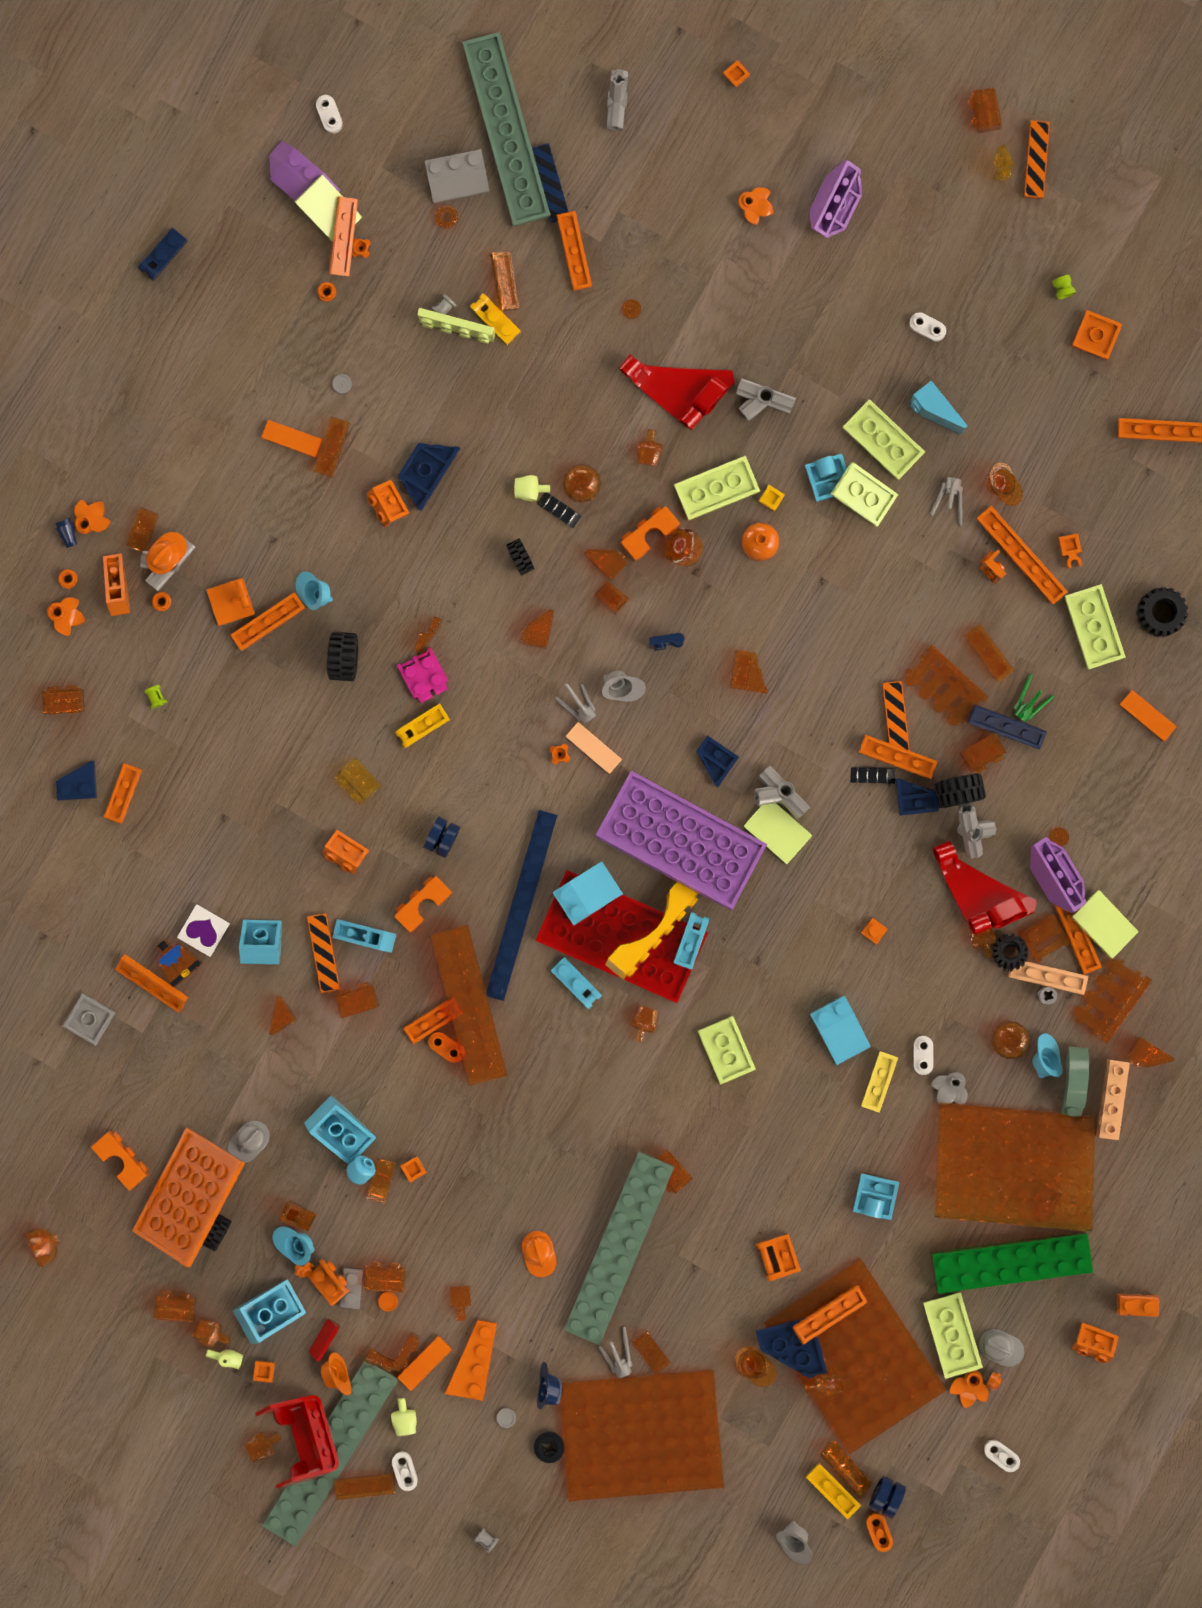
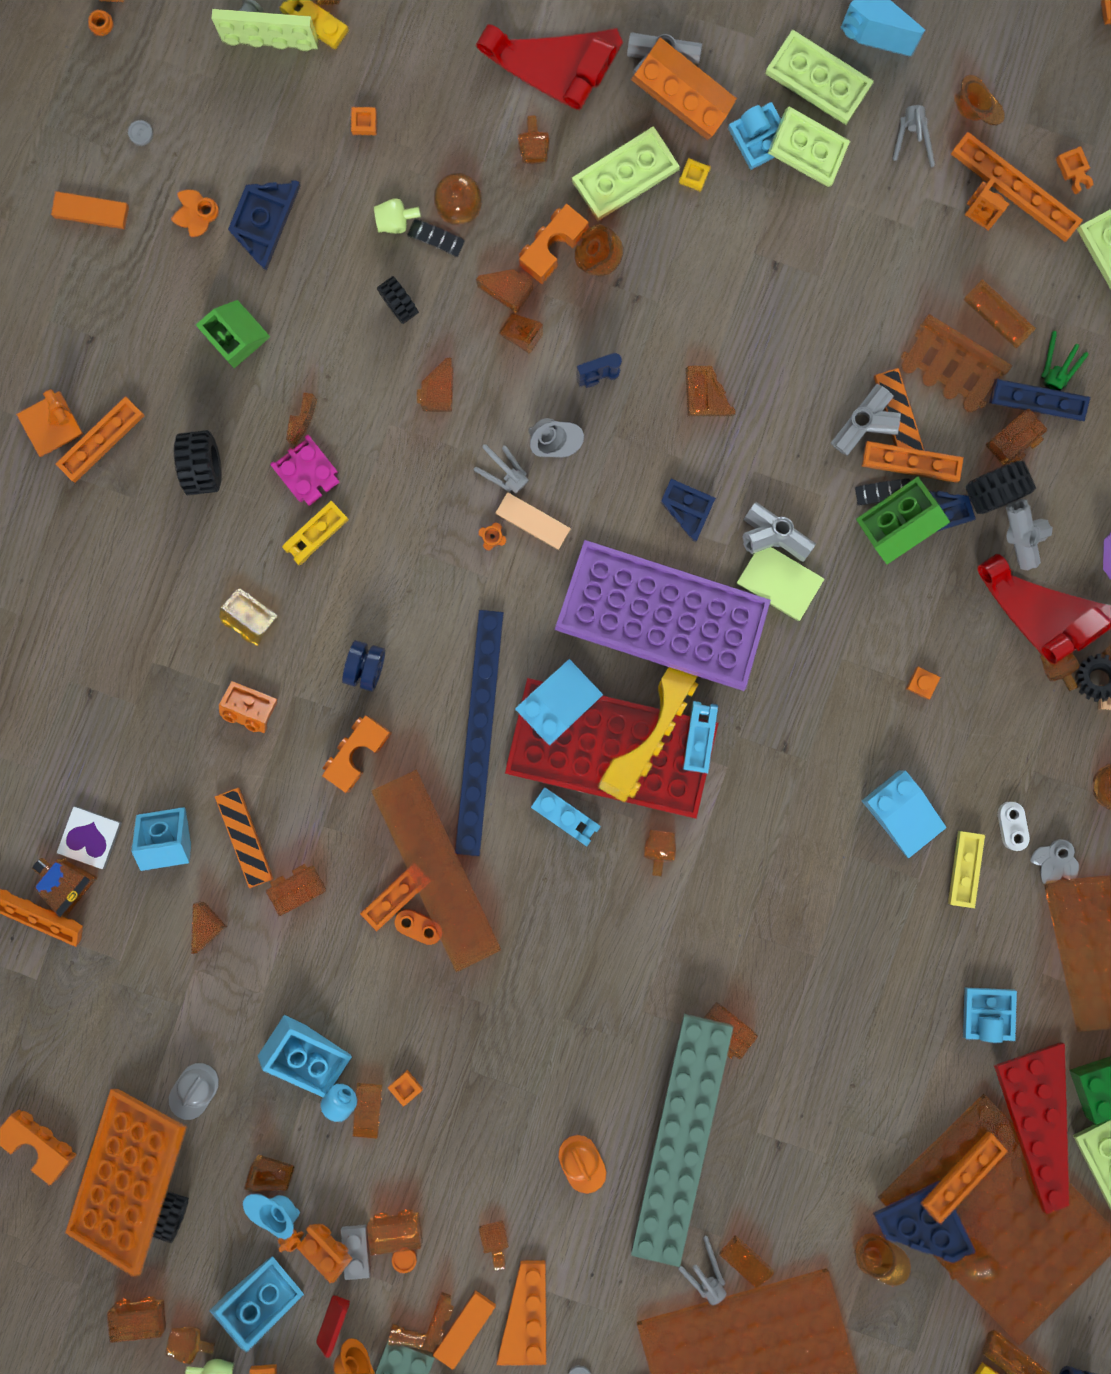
camera: 15 degrees left, 0 degrees up
(312, 591) = (148, 390): medium azure piece -> none
(332, 447) = (140, 210): clear orange plate -> none
(364, 936) = (290, 807): medium azure slope -> none
(371, 455) = (192, 214): none -> orange plate
(387, 503) = (221, 266): orange bracket -> none
(387, 557) = (233, 332): none -> bright green slope
(519, 408) = (364, 121): none -> orange plate
(549, 1388) = (627, 1336): dark blue piece -> none
(726, 1050) = (768, 865): yellowish green tile -> none
(760, 541) = (691, 229): orange cylinder -> none
(775, 432) = (684, 89): none -> orange slope
(784, 1254) = (890, 1109): orange plate -> none
(876, 721) = (879, 420): none -> light grey piece
(880, 802) = (902, 520): none -> bright green slope
(898, 1275) = (1038, 1108): none -> red wing

